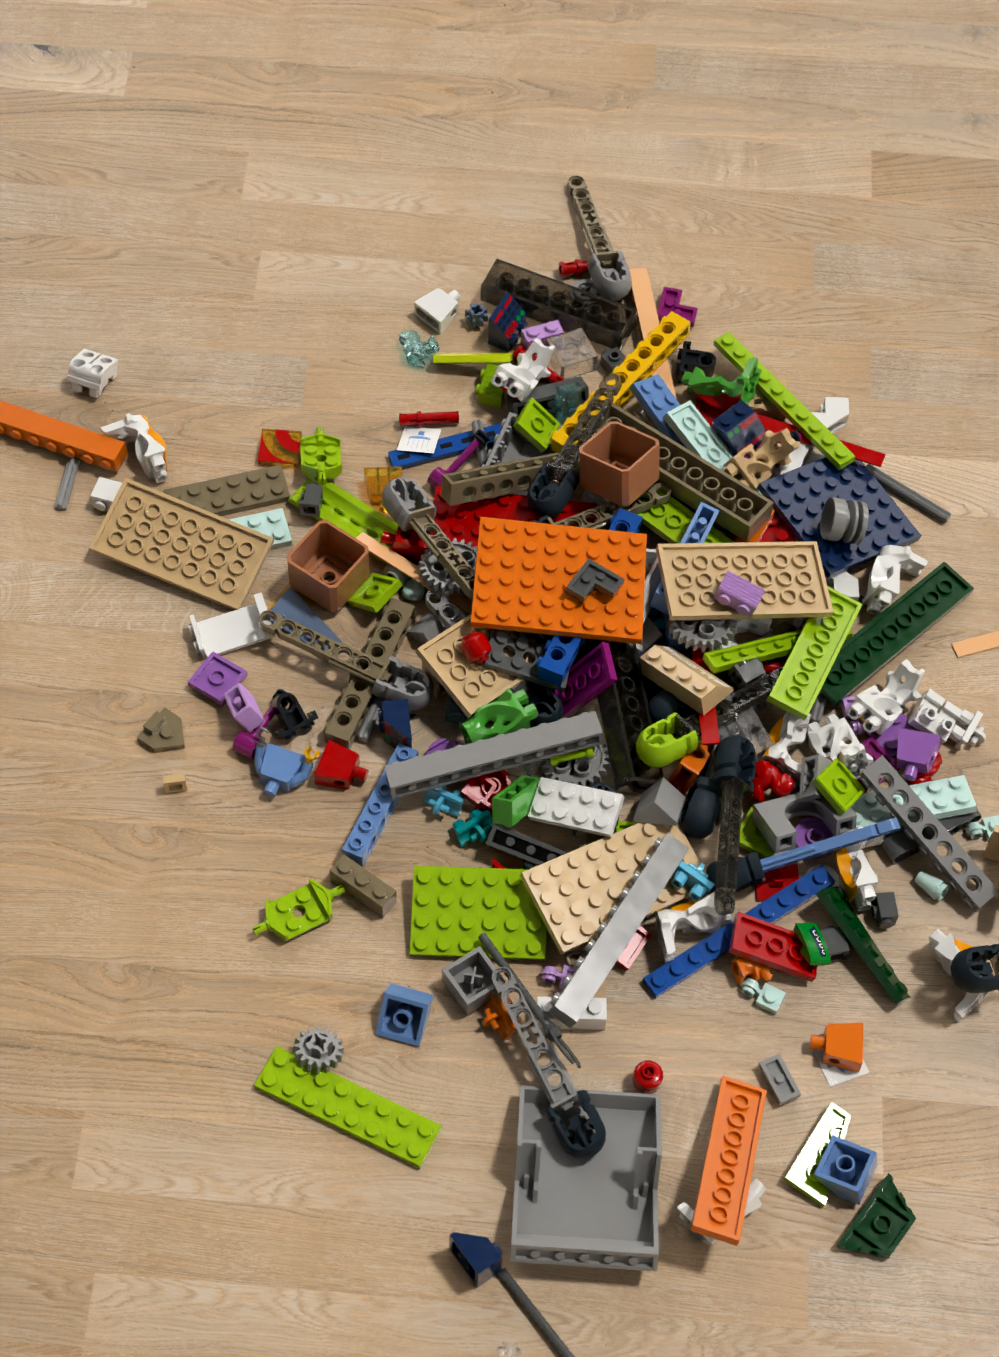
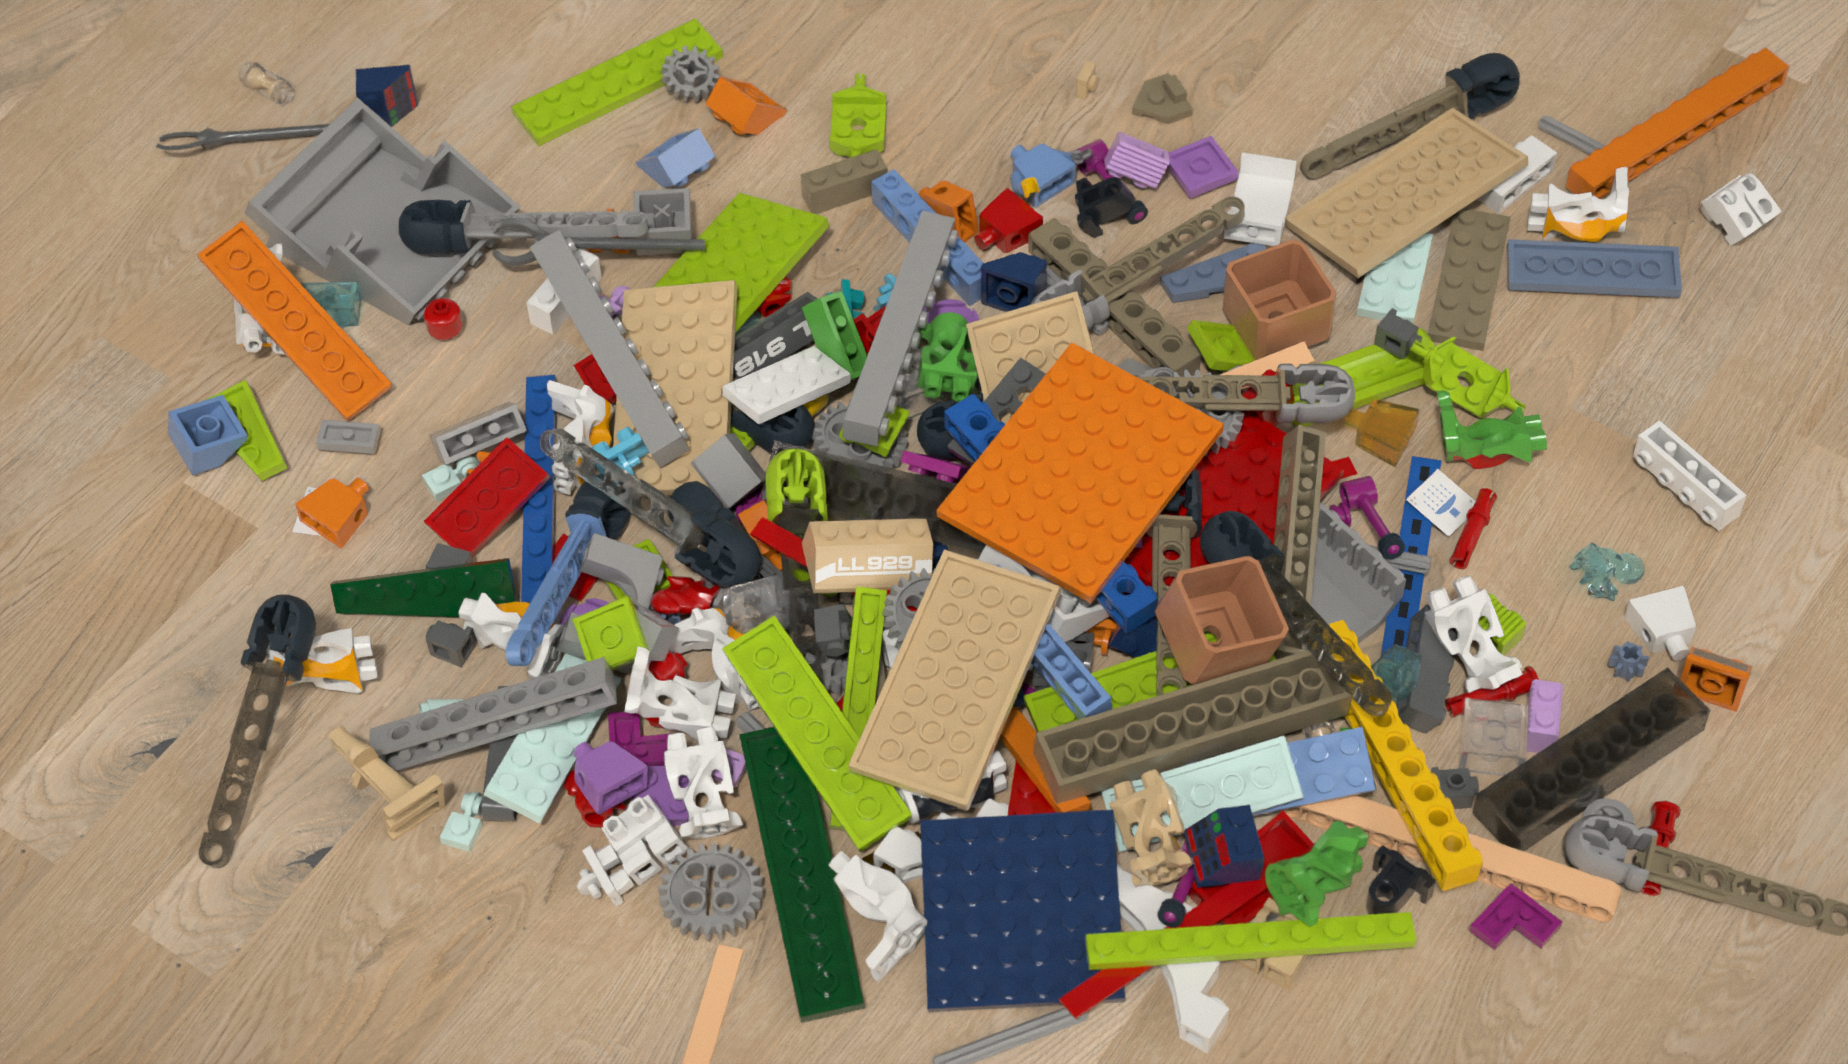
camera: 125 degrees right, 5 degrees down
(60, 541) = (1491, 82): none -> dark tan piece
(183, 432) = (1593, 268): none -> sand blue plate
(279, 448) = (1519, 353): tile -> none
(326, 994) = (743, 106): none -> orange slope
(328, 327) = (1689, 475): none -> white brick
(352, 417) = (1498, 441): none -> bright green hips
(352, 802) = (955, 203): none -> orange torso
(463, 271) = (1715, 678): none -> orange slope
(472, 358) = (1547, 615): neon yellow tile -> none
(475, 647) = (1043, 349): red head -> none
(506, 323) = (1588, 677): dark blue slope -> none
(536, 424) = (1380, 619): lime plate -> none
(594, 576) = (1050, 484): dark grey plate -> none
(684, 1182) = (338, 299): none -> clear light blue brick
(726, 990) = (477, 433): none -> light grey brick
(739, 594) = (927, 637): lavender brick -> none
(814, 946) = (461, 534): green slope -> none
(844, 520) = (979, 852): light grey wheel -> none
(880, 1223) = (135, 443): dark green wing -> none
(944, 685) = (680, 891): none -> light grey gear

